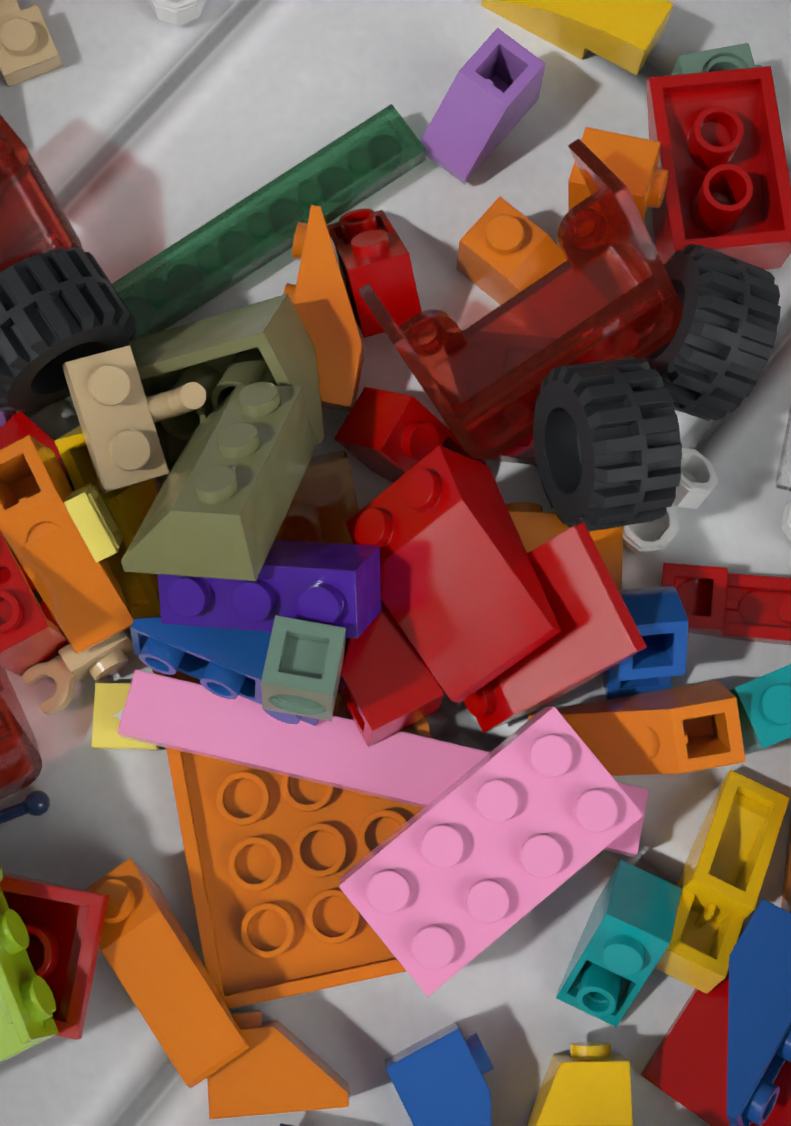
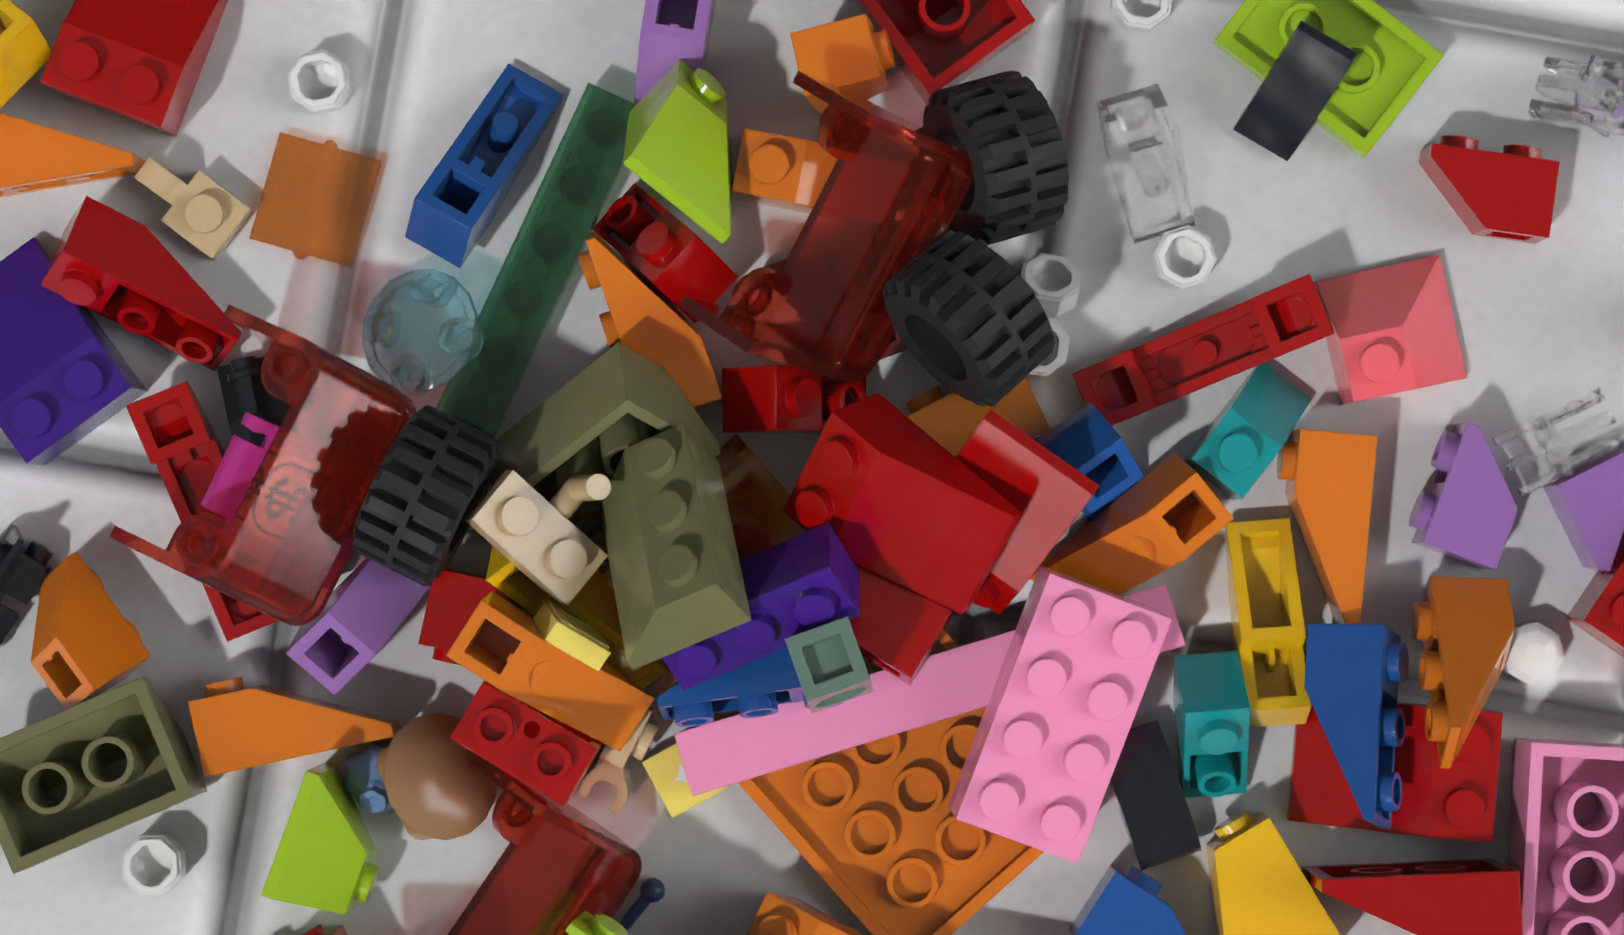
camera: 25 degrees left, 10 degrees up
(116, 83) = (315, 199): none -> clear orange piece
(134, 220) = (421, 331): none -> clear light blue dish
(255, 123) = (481, 166): none -> blue slope
(444, 181) = (683, 146): none -> lime slope
(528, 981) = (1152, 799): none -> black slope

